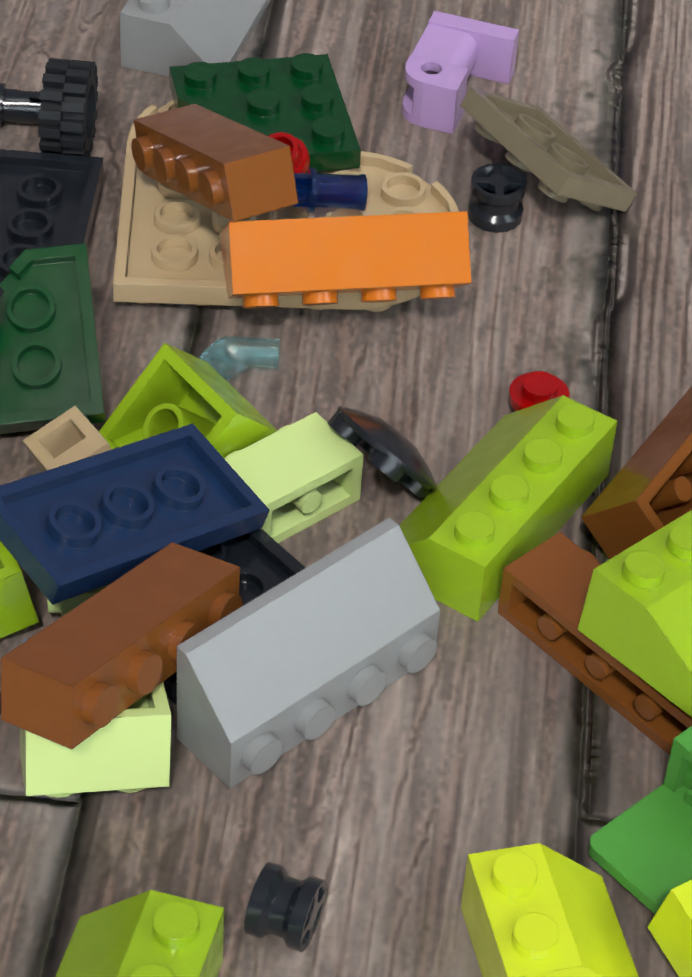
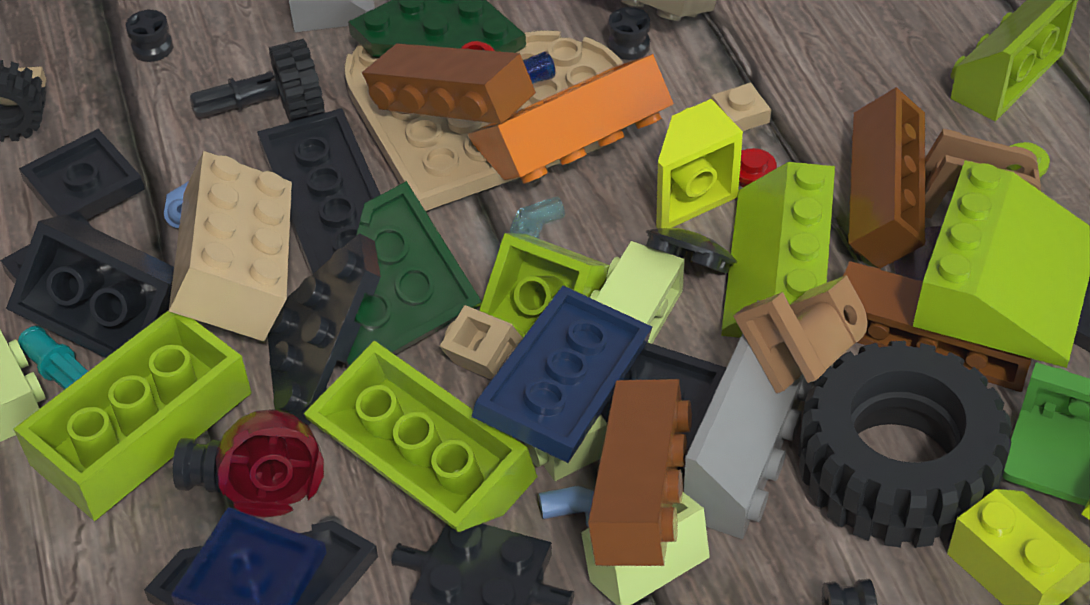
camera: 20 degrees left, 5 degrees up
(395, 589) = (805, 334): none -> medium nougat piece
(449, 360) = (697, 164): none -> neon yellow slope
(484, 685) = (912, 390): none -> black tyre
(574, 328) = (744, 106): none -> tan plate

